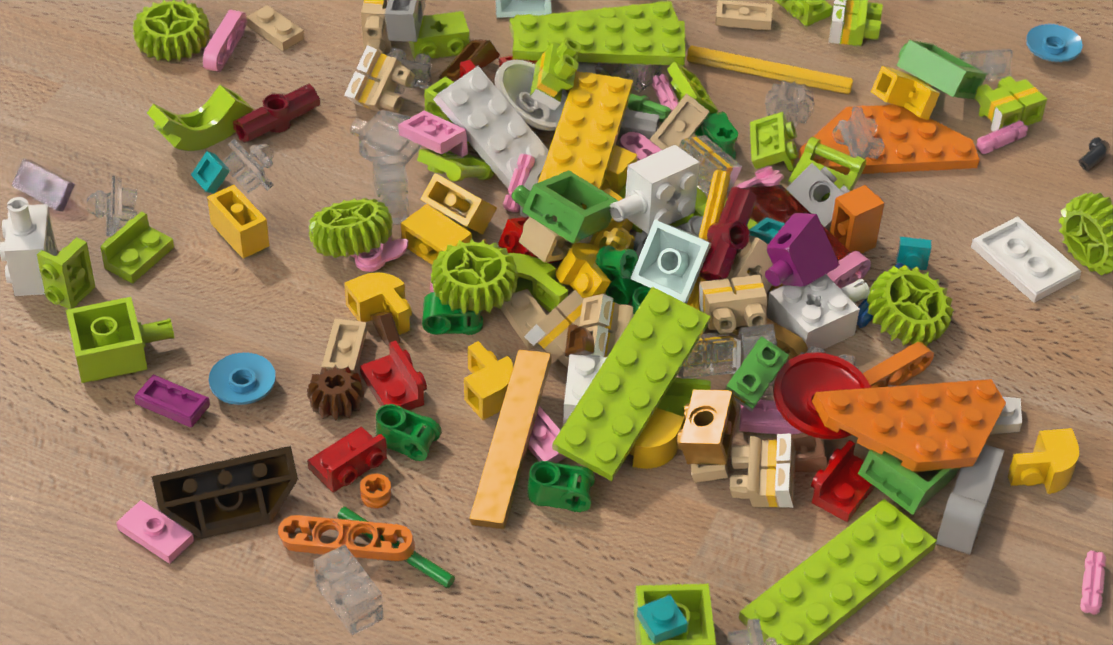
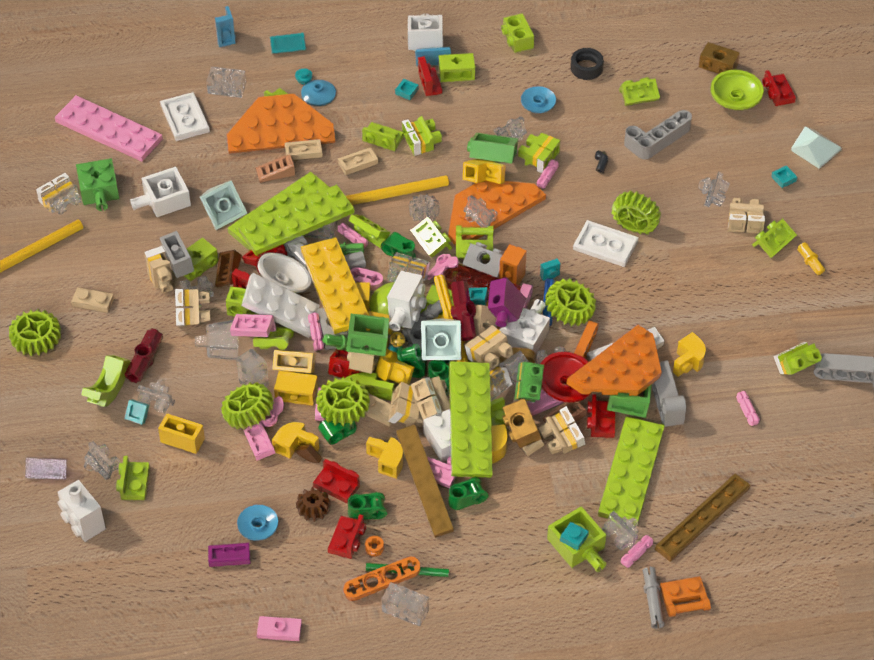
camera: 30 degrees left, 5 degrees up
(68, 275) = (114, 516): lime bracket -> none
(111, 340) = (170, 538): lime brick -> none
(224, 40) = (72, 323): bright pink beam -> none
(227, 493) = (305, 586): dark brown wedge -> none
(330, 281) = (259, 441): none -> bright pink plate
(345, 344) = (296, 476): tan plate -> none
(555, 72) = (290, 253): lime hips -> none
(579, 341) = (424, 410): reddish brown tile -> none
(680, 123) = (379, 253): tan plate -> none

